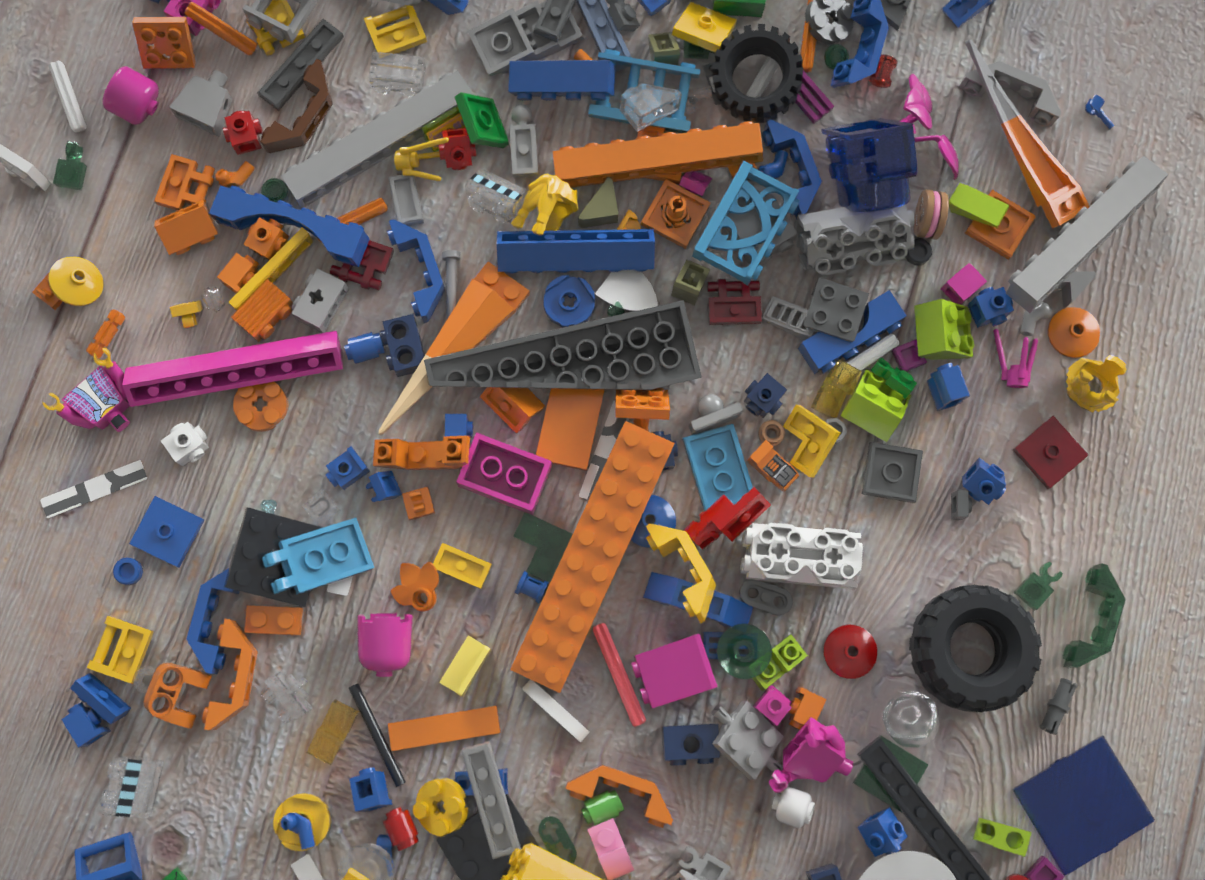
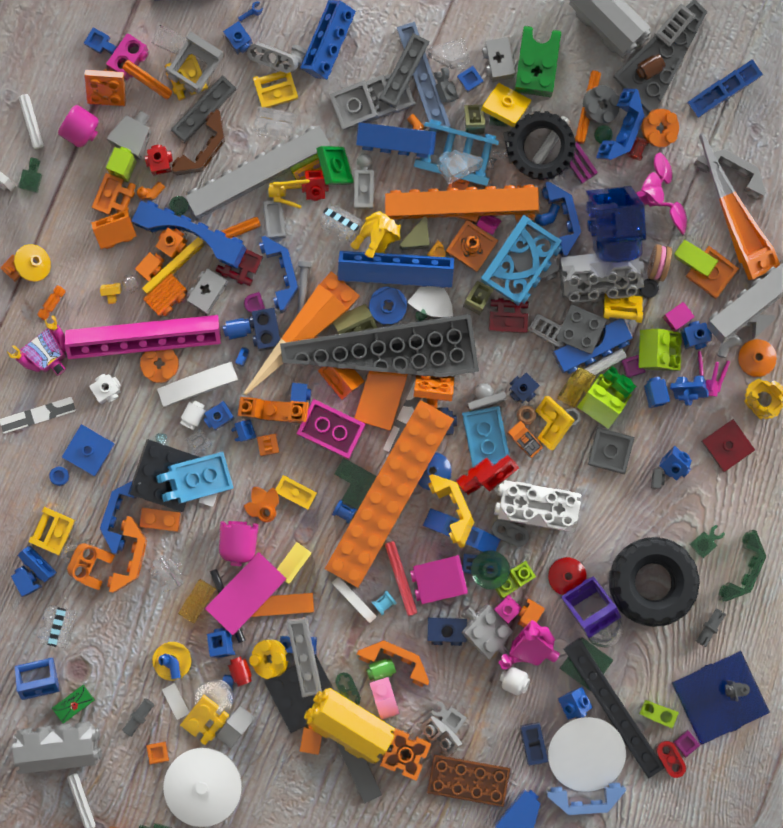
camera: 10 degrees right, 5 degrees up
(191, 138) = (121, 163): none -> lime brick
(310, 470) = (193, 415): none -> white brick
(313, 427) = (197, 384): none -> white slope
(374, 386) = (242, 356): none -> blue tile
(384, 311) = (253, 302): none -> magenta tile
(400, 715) = (245, 593): none -> dark pink tile
(526, 322) = (355, 320): none -> olive panel
(598, 711) = (384, 602): none -> medium azure bush
(888, 277) = (623, 308): none -> yellow plate
(905, 710) = (598, 620): none -> dark purple window
(923, 37) = (668, 120): none -> orange plate
(991, 380) = (689, 391): none -> blue hips
(1108, 794) = (736, 690): none -> dark grey hinge

